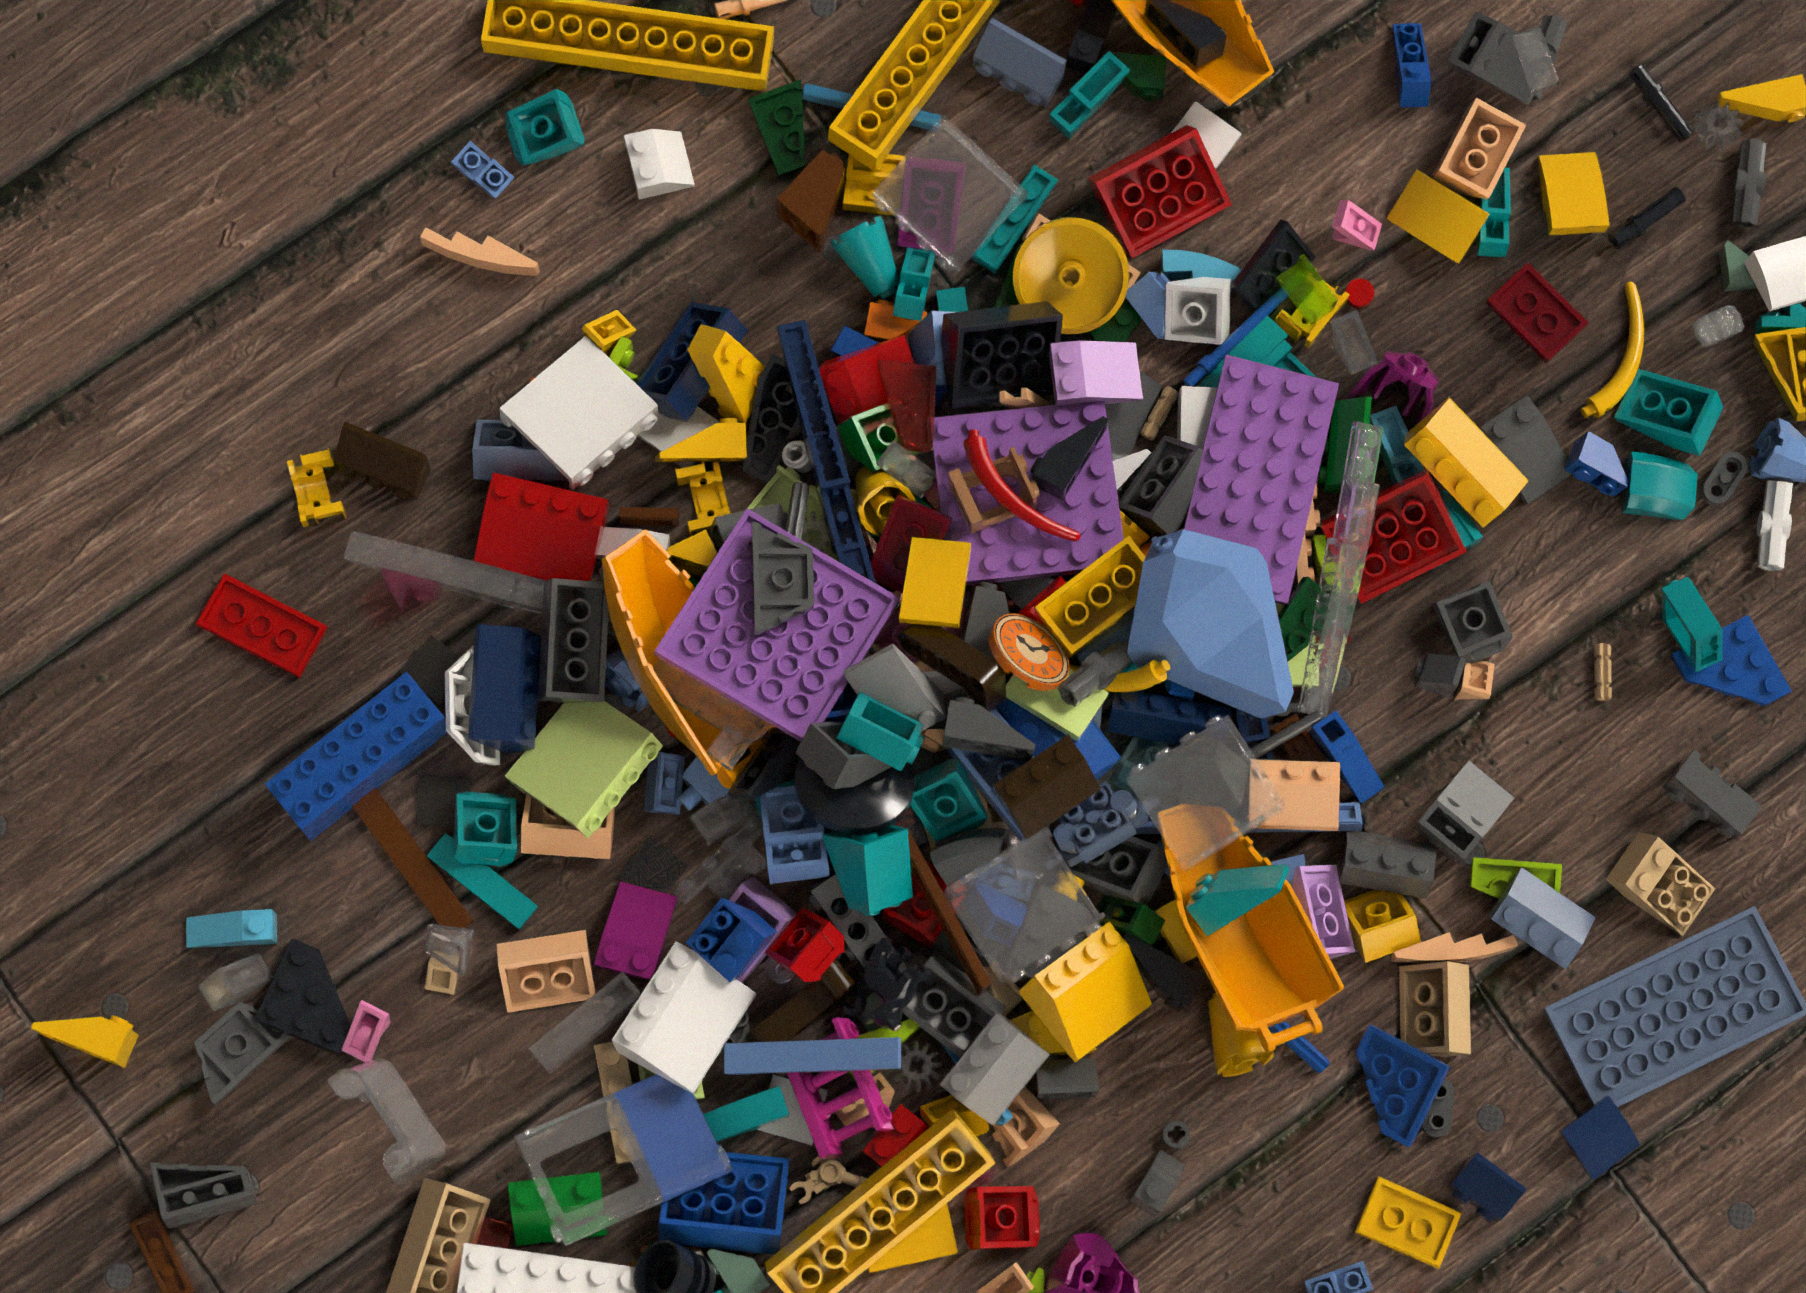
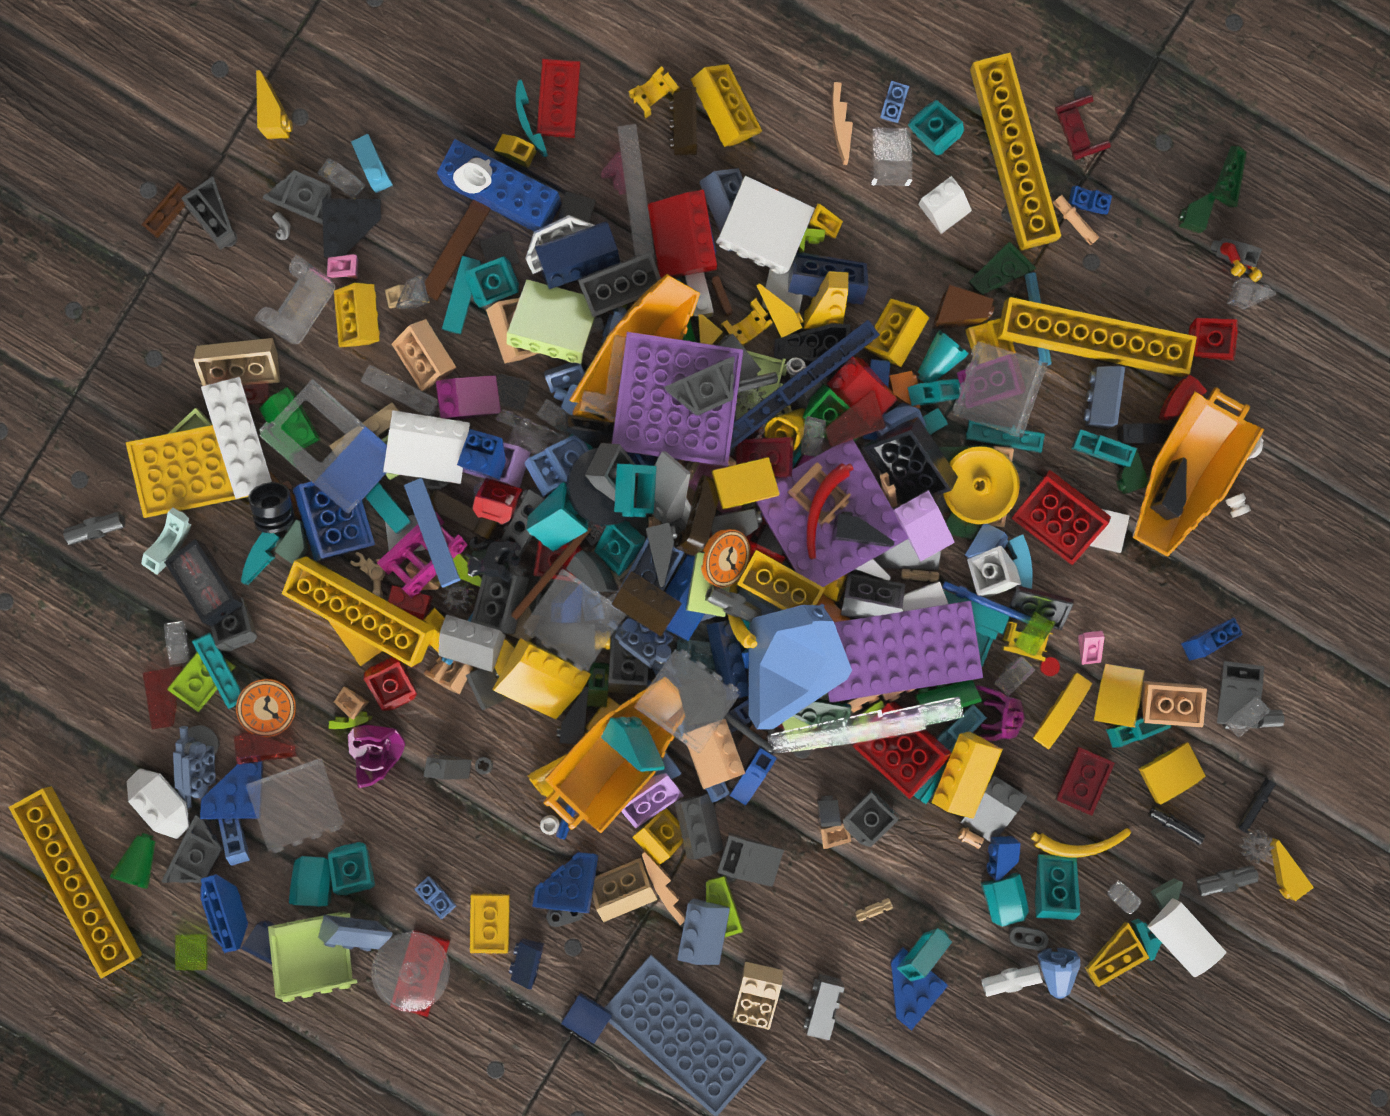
camera: 75 degrees right, 10 degrees up
(267, 1096) = (284, 226): none -> light grey arm
(309, 715) = (516, 149): none -> yellow slope
(312, 680) = (522, 99): none -> teal slope
(334, 774) = (473, 175): none -> white piece
(381, 397) = (725, 104): none -> yellow slope
(444, 1043) = (356, 315): none -> yellow slope
(557, 205) = (891, 156): none -> clear slope
(803, 291) = (898, 331): none -> yellow slope
(1300, 1075) = (549, 824): none -> white plate
(1428, 300) = (1062, 711): none -> yellow slope
(1550, 501) = (970, 837): none -> light nougat pin

